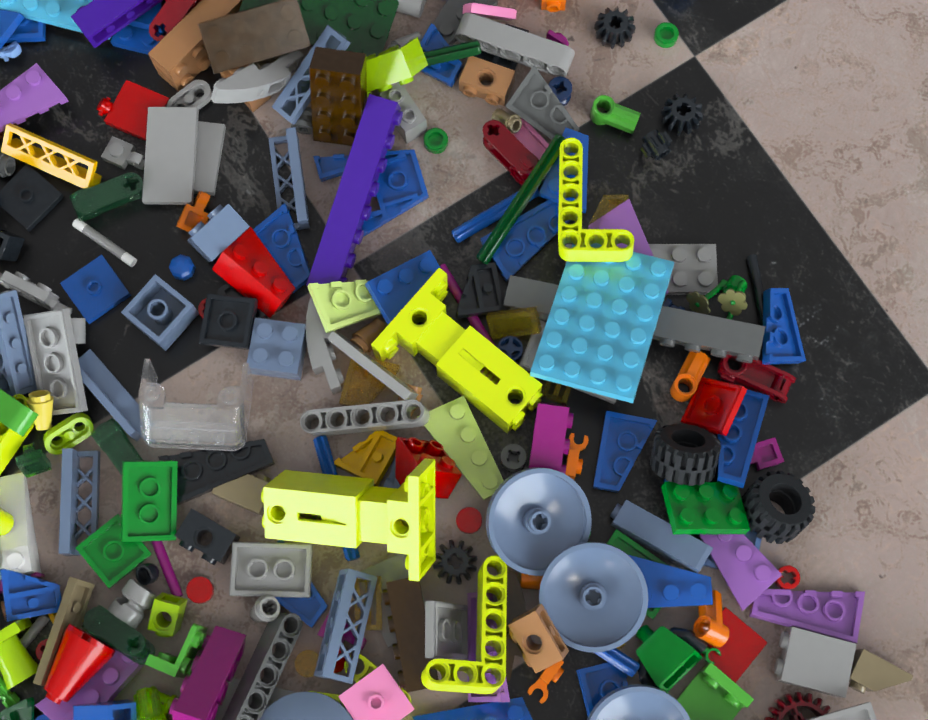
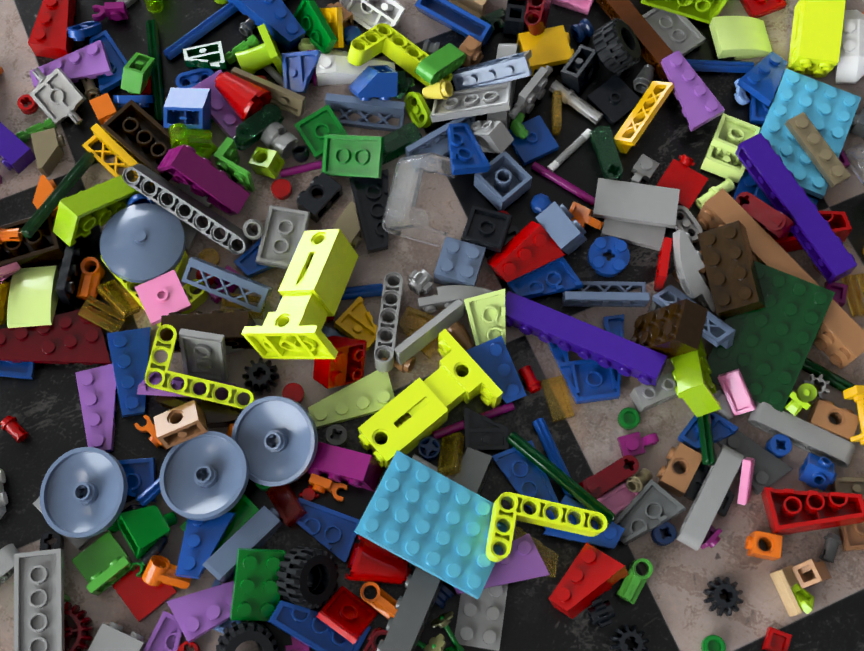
camera: 95 degrees right, 5 degrees down
(35, 244) = (576, 102): none -> light grey pin
(39, 489) = (375, 82): none -> blue slope
(55, 262) = (556, 113): none -> clear yellow tile
(74, 59) = (721, 152): none -> yellowish green slope
(83, 304) = (518, 128): none -> bright green arm
(102, 333) = (491, 135): none -> light grey brick
(128, 358) = (465, 151): none -> blue wing
(145, 71) = (727, 185): none -> yellowish green pin
(150, 244) = (563, 183): none -> magenta bar
(232, 171) = (617, 248): none -> blue plate
(248, 116) = (662, 264): none -> red tile
(306, 392) = (420, 282): none -> light grey gear
(391, 27) = (736, 392): none -> bright pink tile
(408, 250) = (530, 379): none -> red pin
(425, 219) = (557, 398): none -> clear yellow tile
(464, 132) = (634, 445): none -> magenta plate
(586, 478) = (309, 494): none -> red piece
(605, 498) = (286, 503): none -> clear red tile
(626, 161) = (586, 580): none -> red wedge
(655, 390) = (375, 564): none -> red cone

